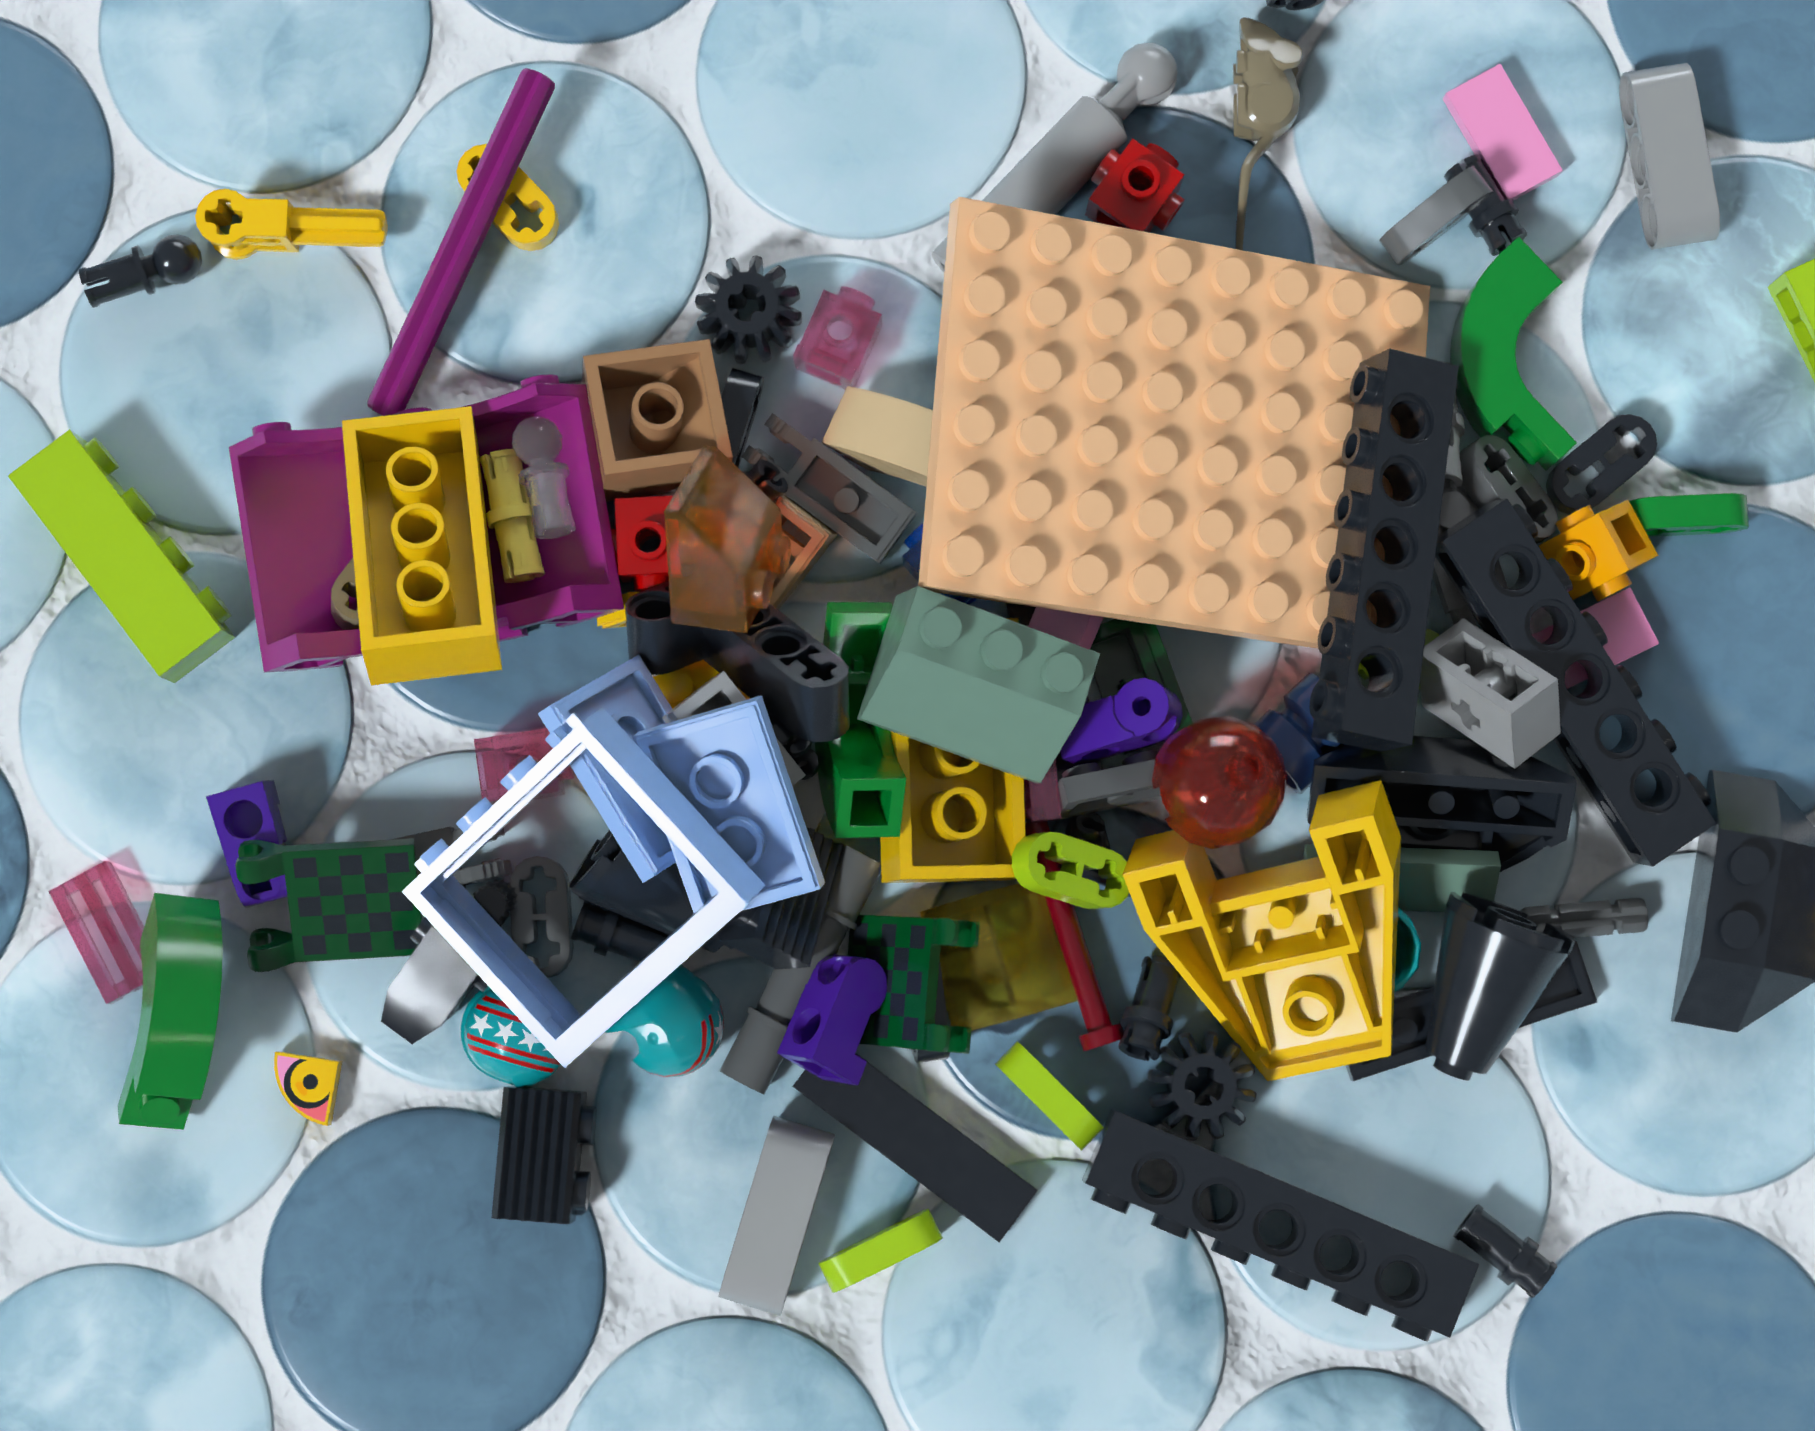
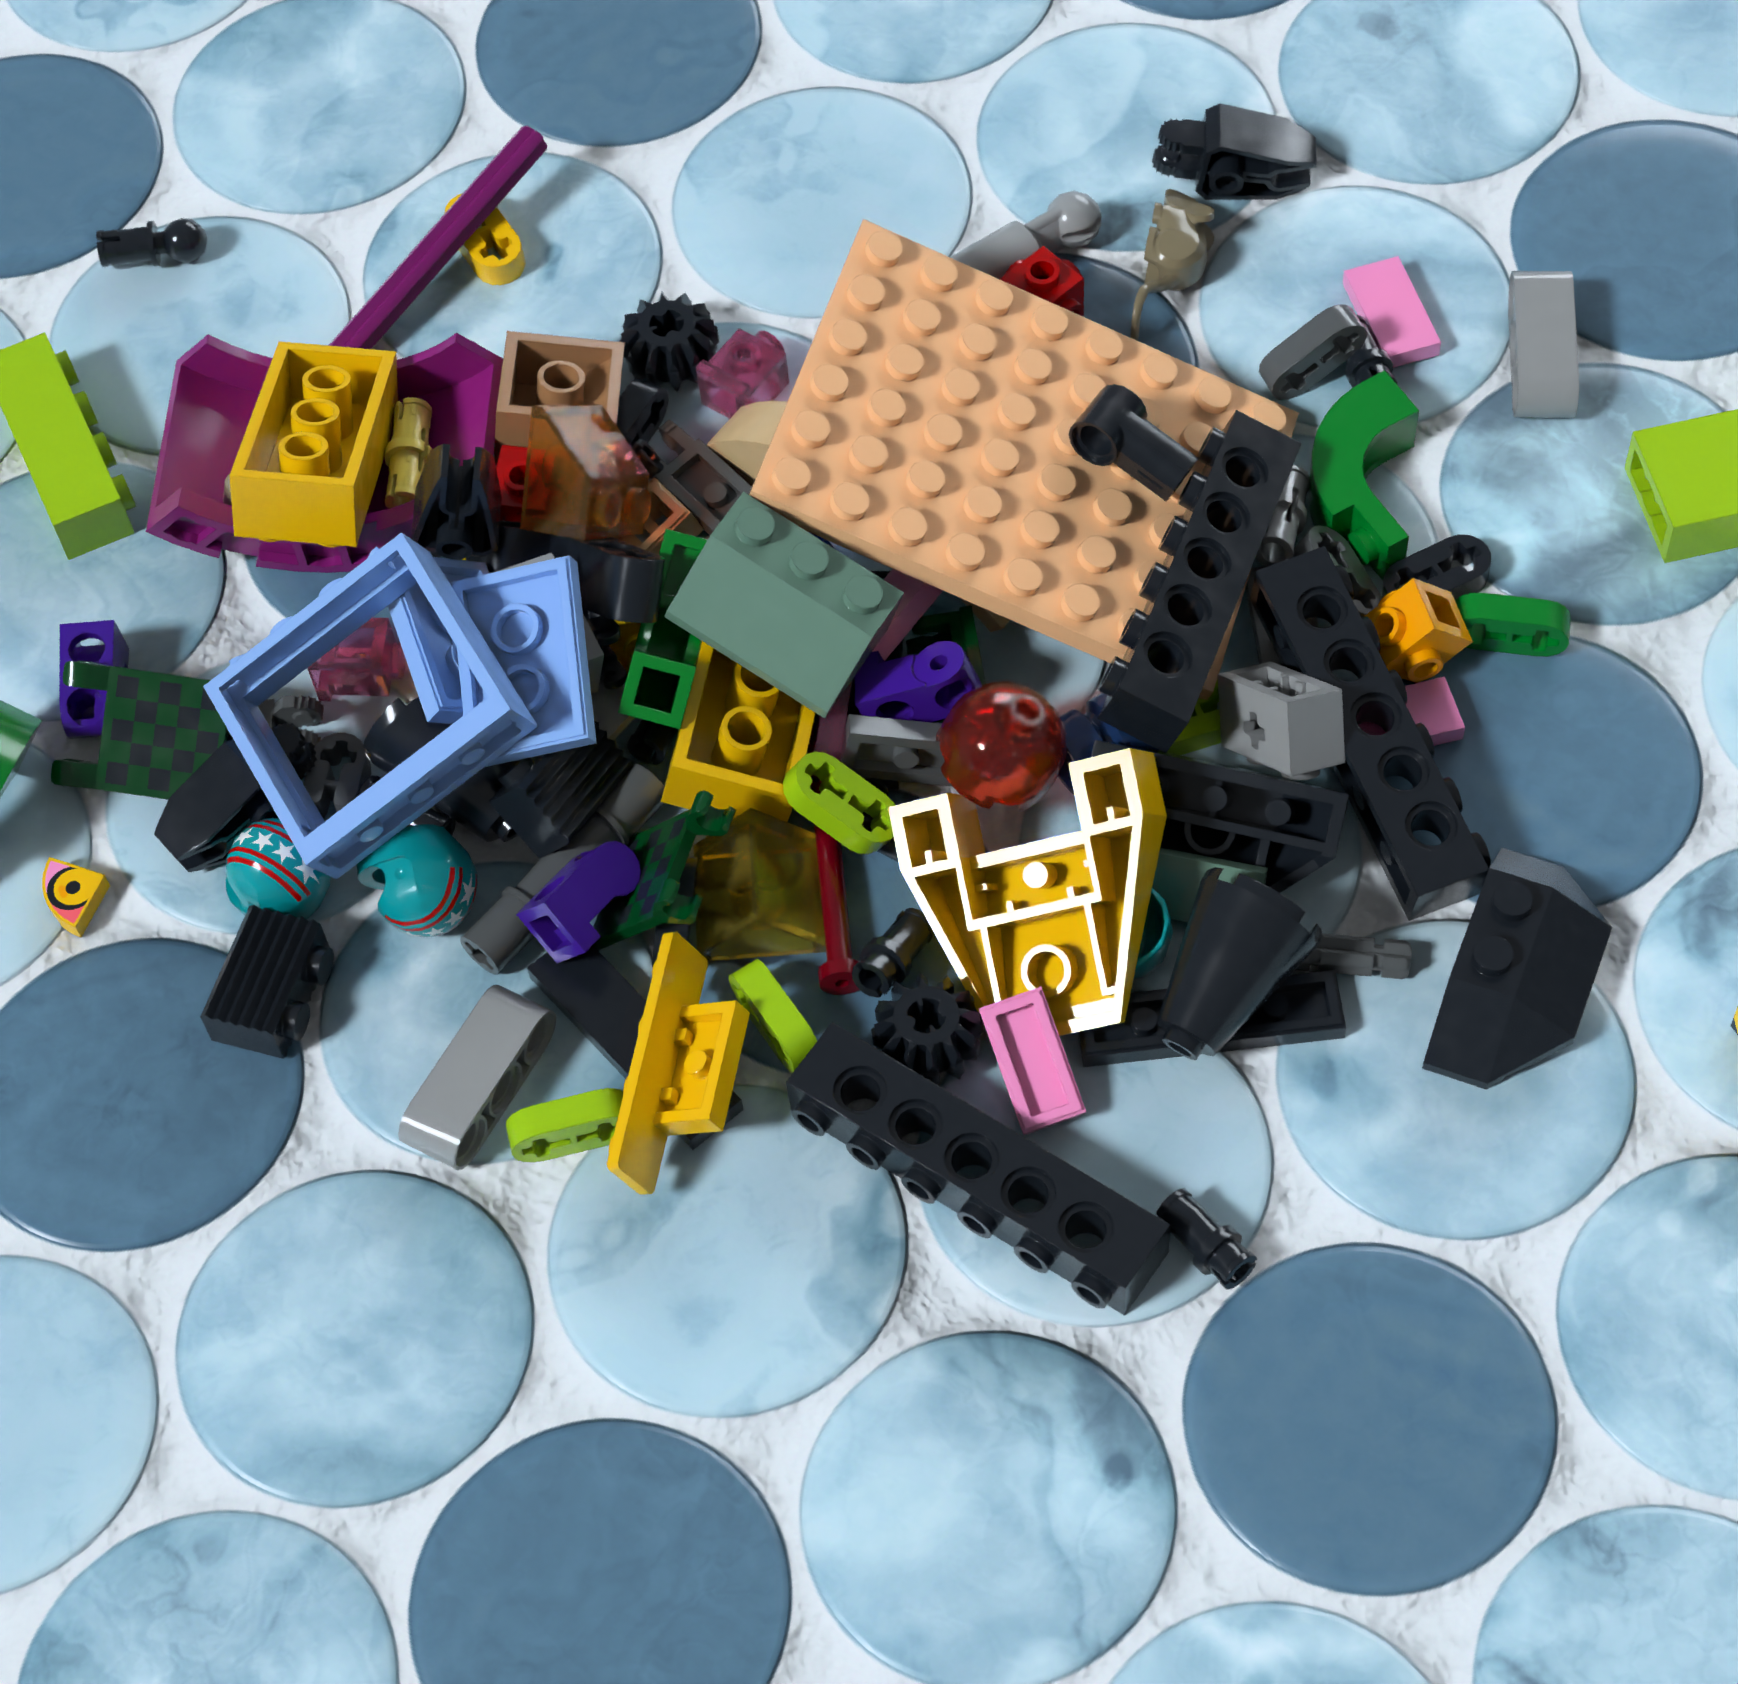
camera: 15 degrees right, 25 degrees down
(280, 227) = (275, 228): yellow connector -> none
(538, 444) = (445, 412): clear pin -> none
(603, 626) = (457, 505): none -> black hinge
(979, 1182) = (679, 1065): none -> yellow bracket
(1274, 403) = (1118, 433): none -> black piece
(1309, 1101) = (1032, 1061): none -> bright pink tile

